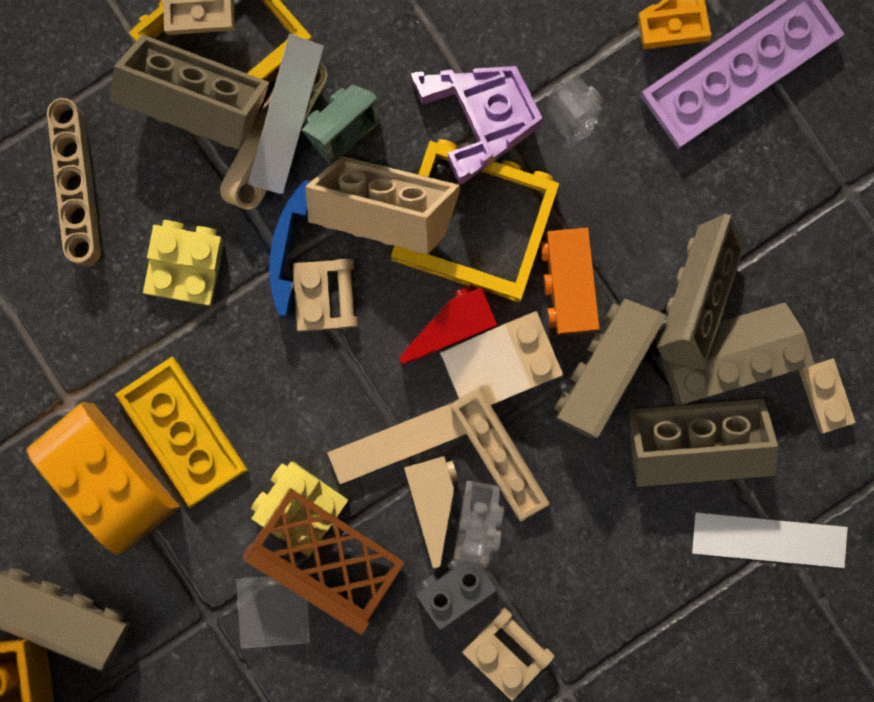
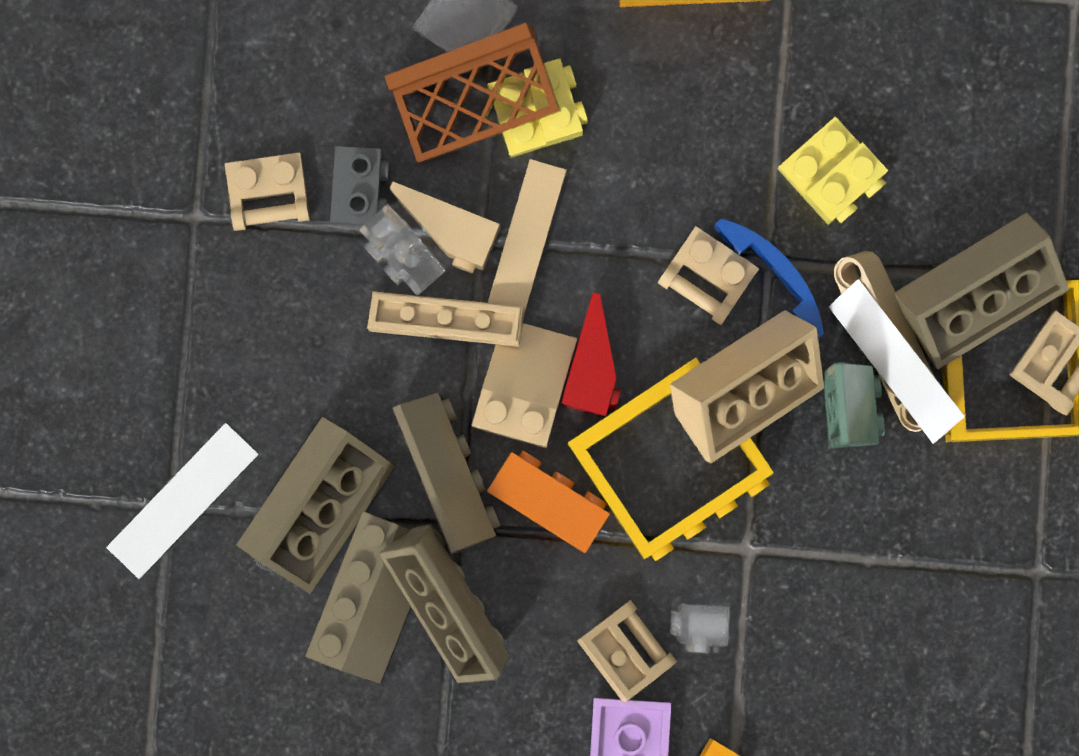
camera: 140 degrees right, 0 degrees up
(66, 168) = (1001, 130): tan beam -> none
(181, 432) = (684, 57): yellow tile -> none
(495, 107) = (757, 557): wing -> none
(640, 150) = (619, 659): none -> tan plate
(827, 396) = (267, 653): tan plate -> none

